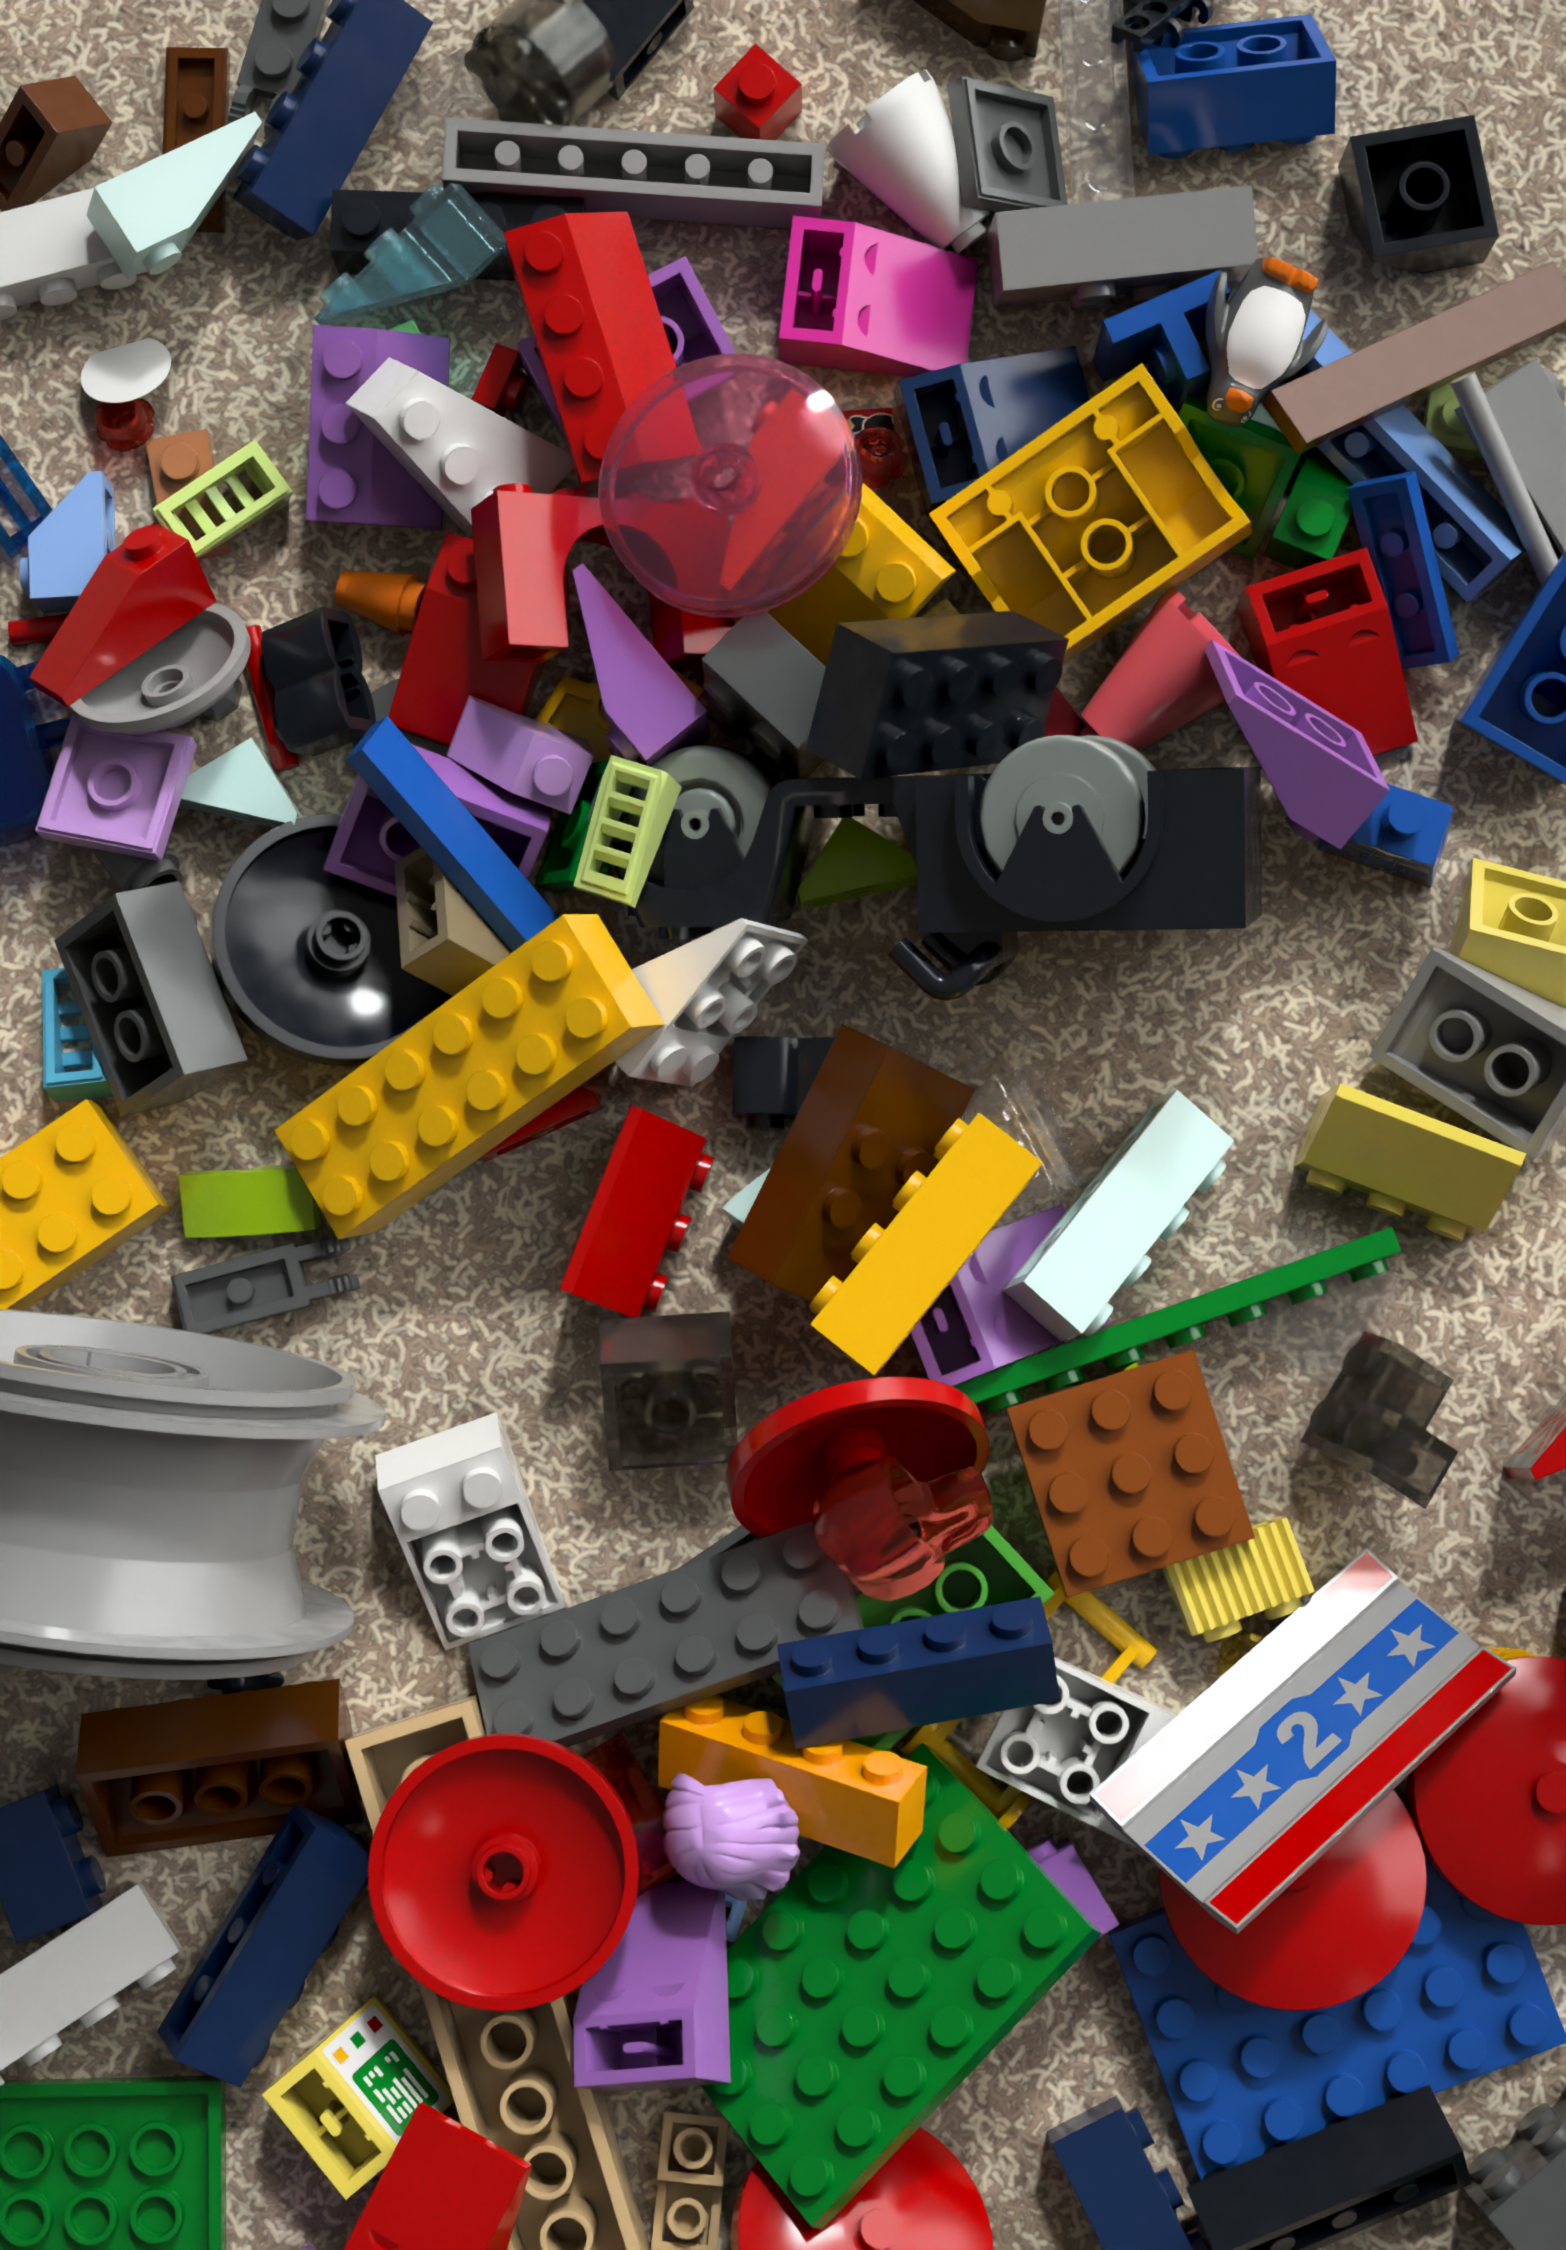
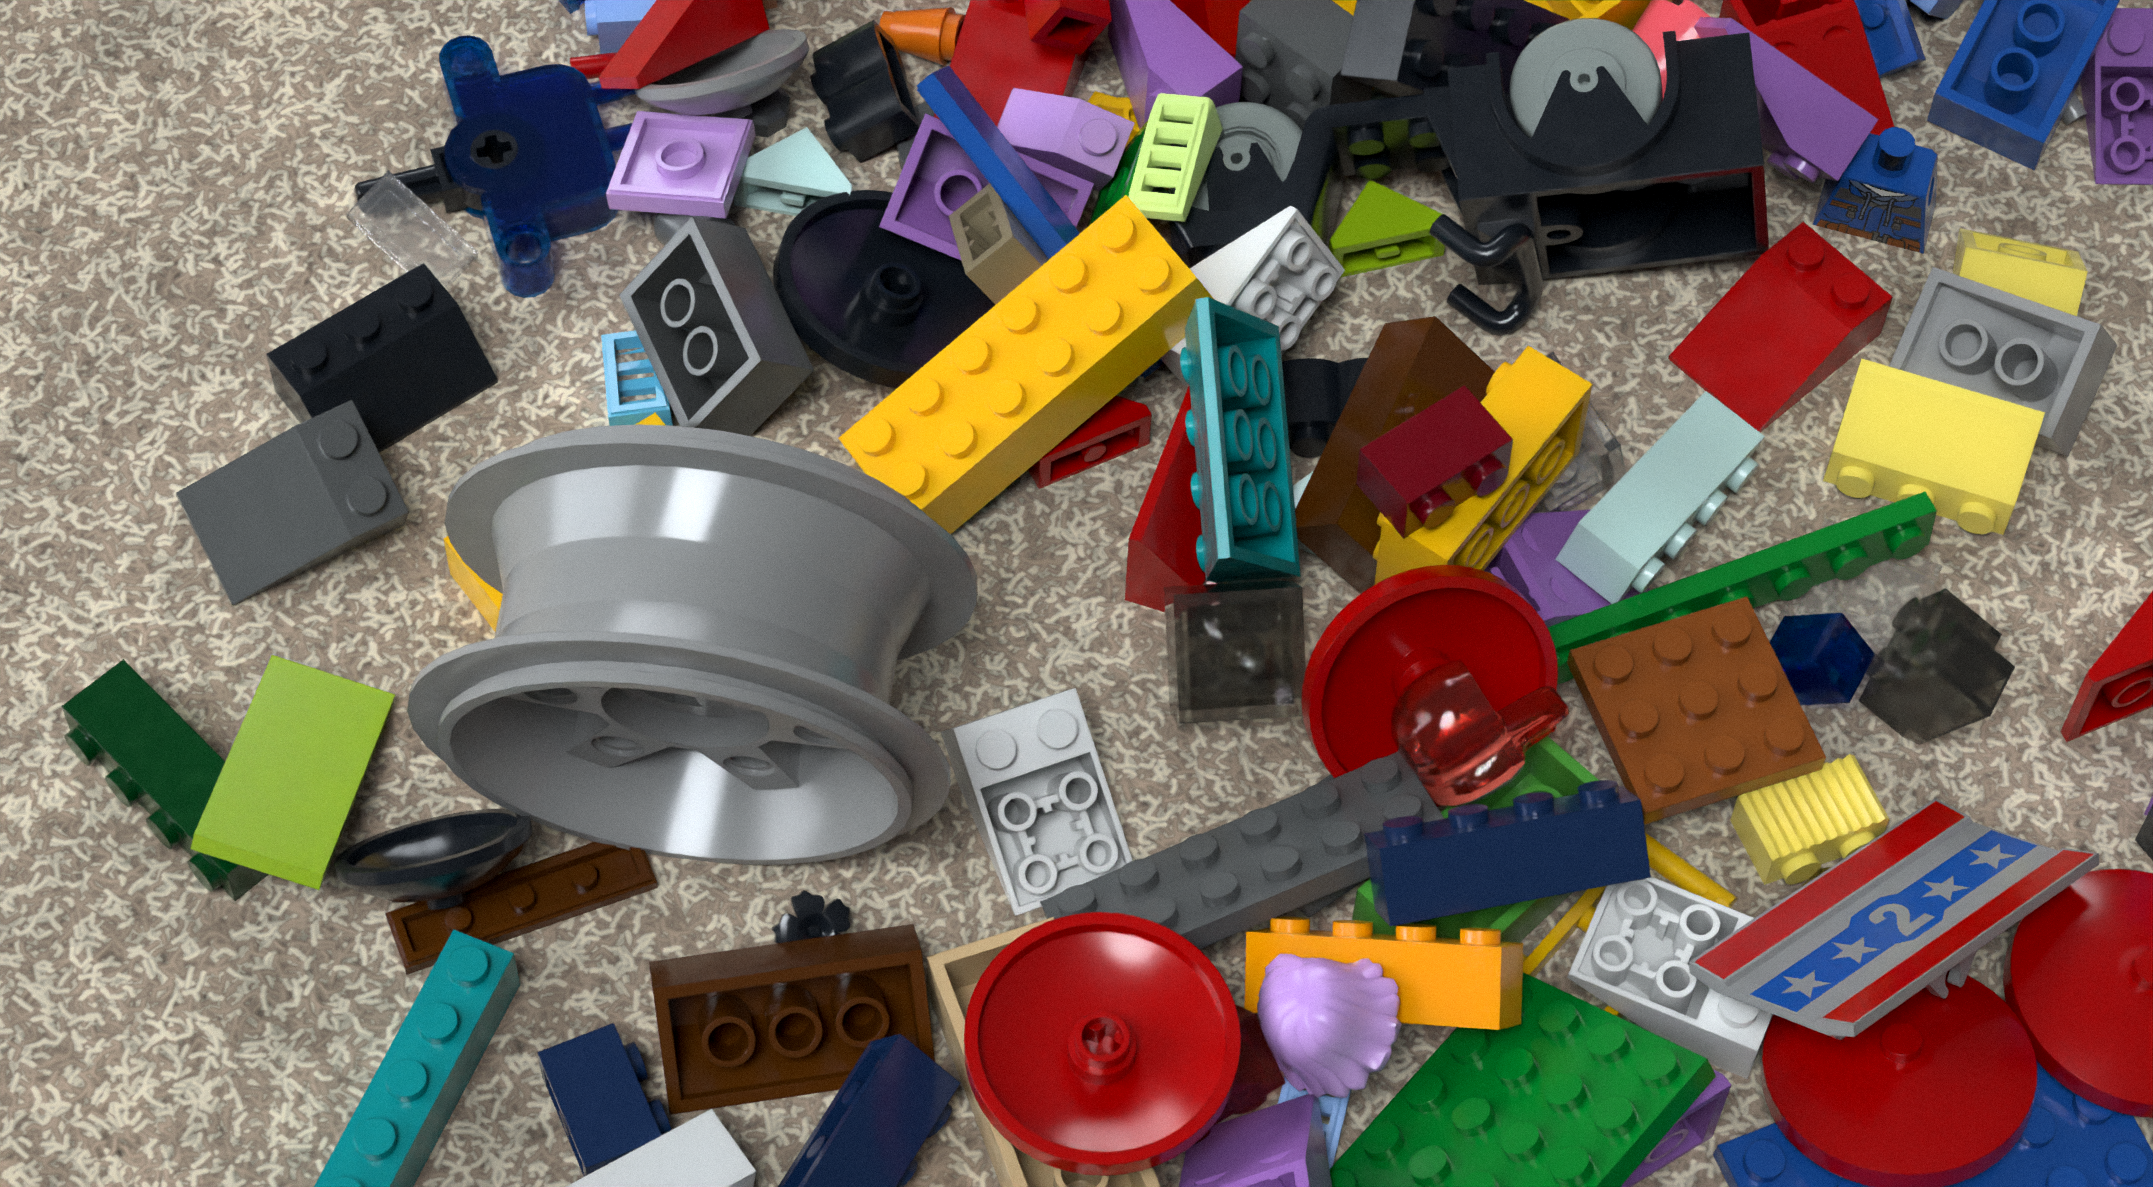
camera: 10 degrees left, 25 degrees down
(264, 698) = (813, 111): red piece -> none
(674, 1206) = (1239, 446): none -> teal slope
(867, 1275) = (1435, 462): none -> dark red brick
(1262, 1401) = (1821, 657): none -> clear blue brick
(1266, 995) = (1783, 328): none -> red slope

